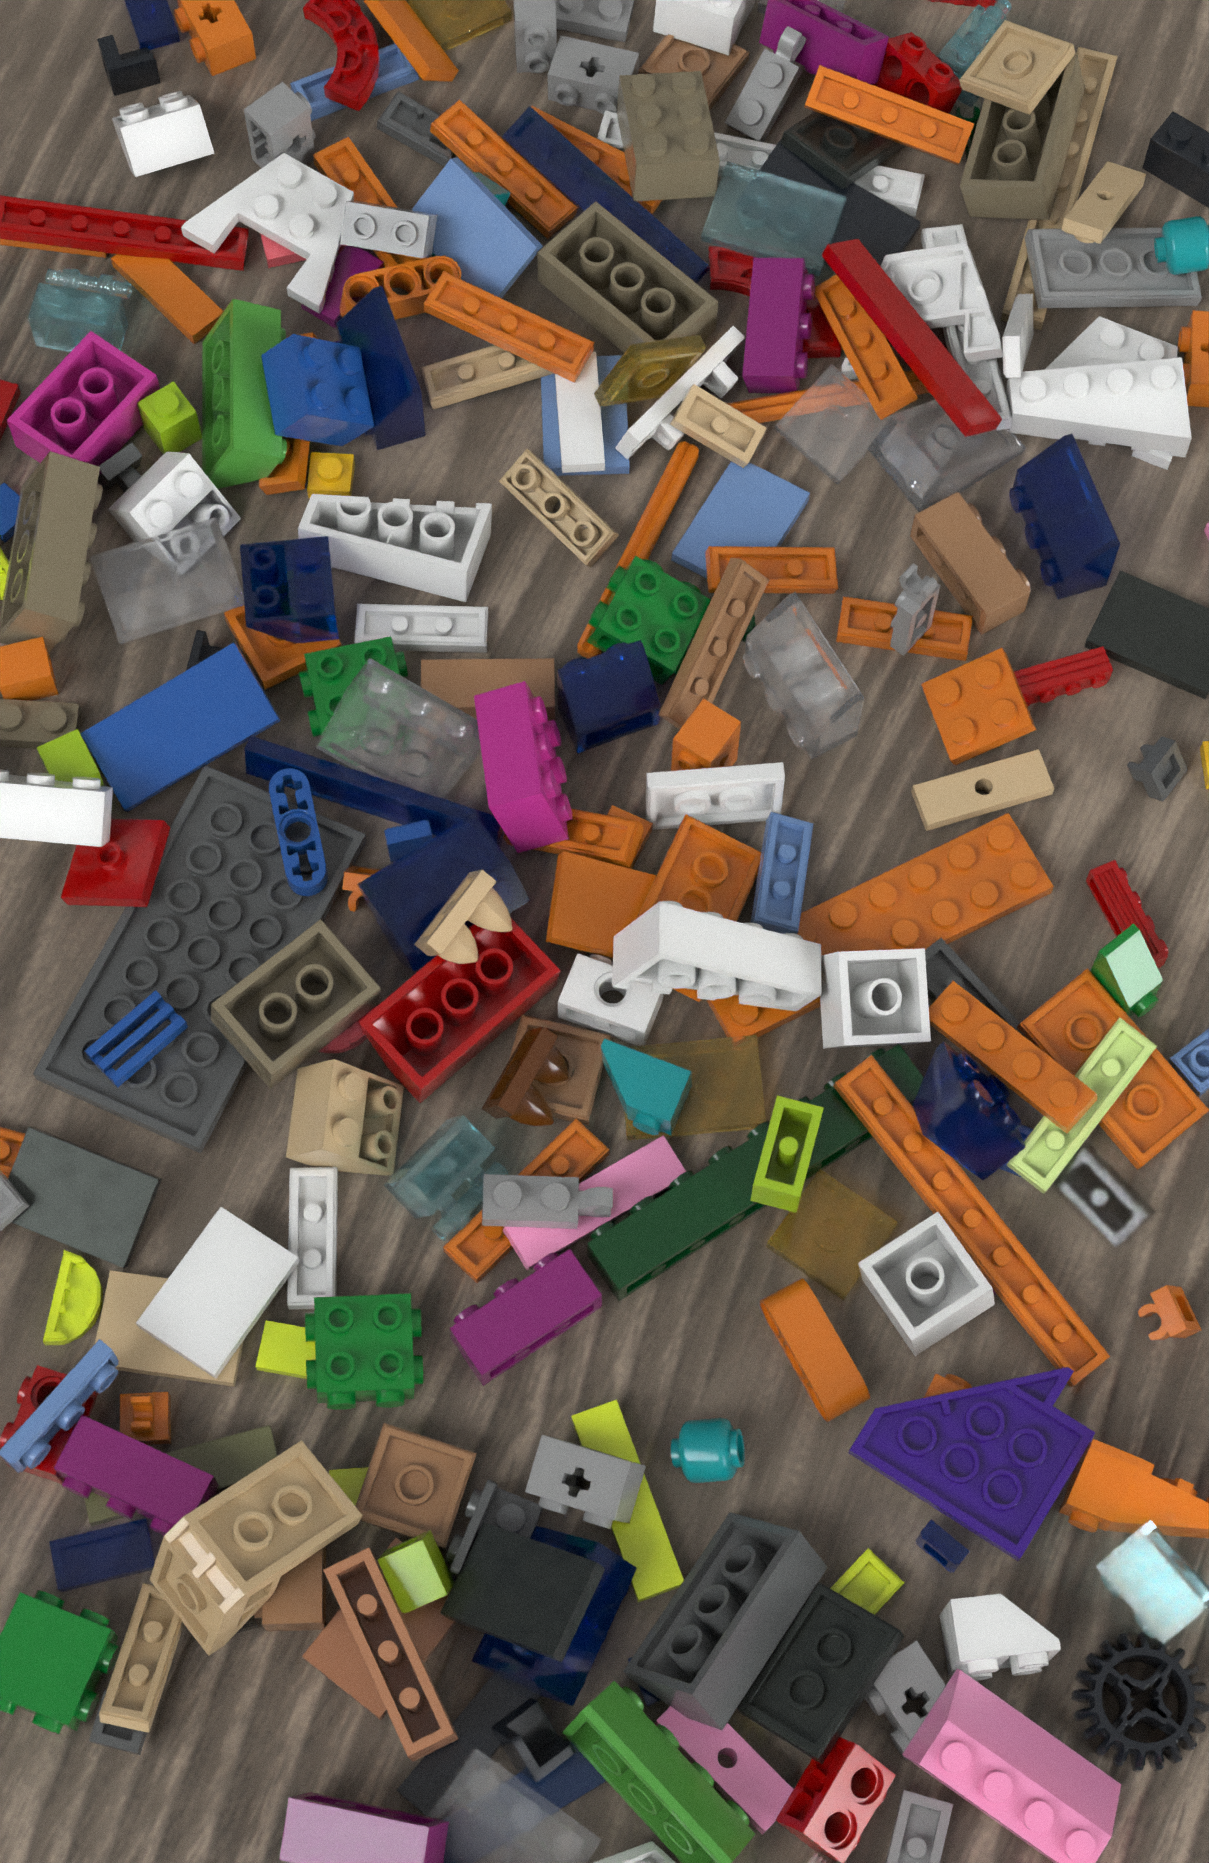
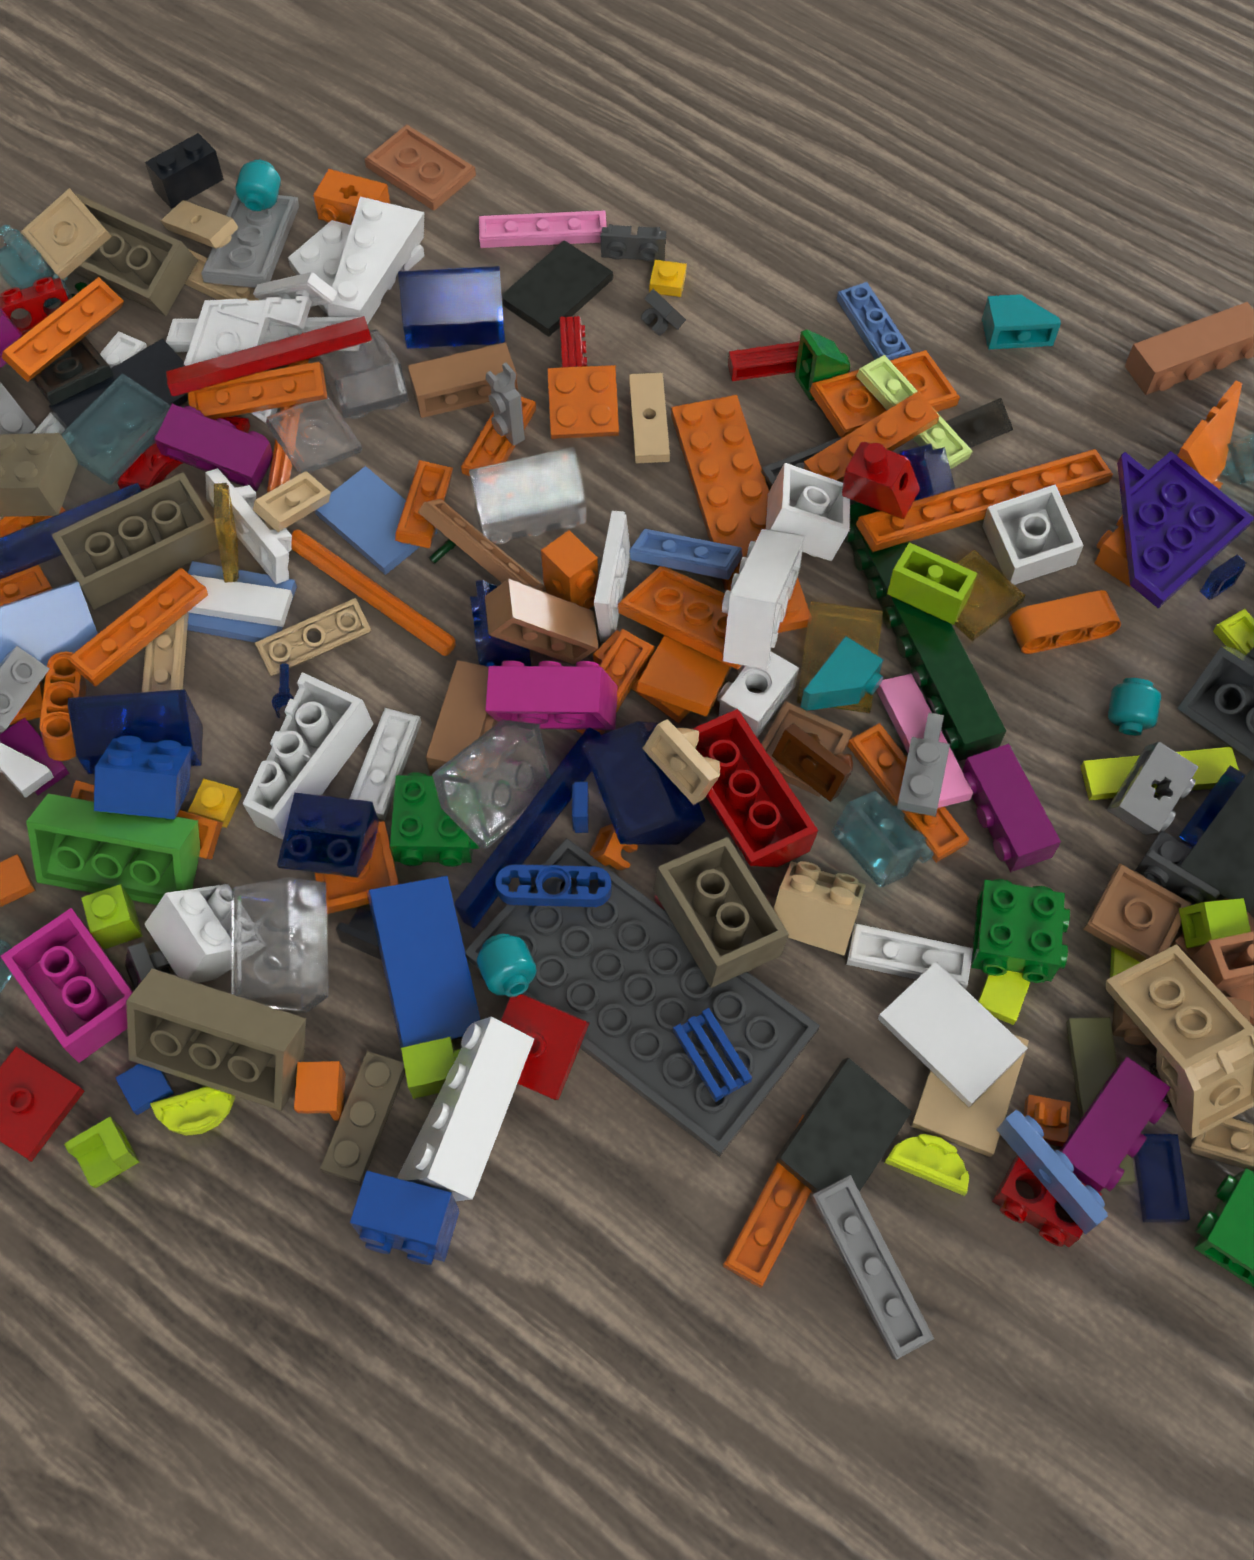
camera: 75 degrees left, 5 degrees down
(184, 802) = (506, 965): none -> teal head
(467, 497) = (283, 697): none -> clear blue hand
(619, 727) = (541, 622): none -> medium nougat brick
(651, 609) = (437, 590): green brick -> none
(913, 1046) = (881, 480): none -> red torso
(1174, 1311) = (1072, 403): orange tile -> none

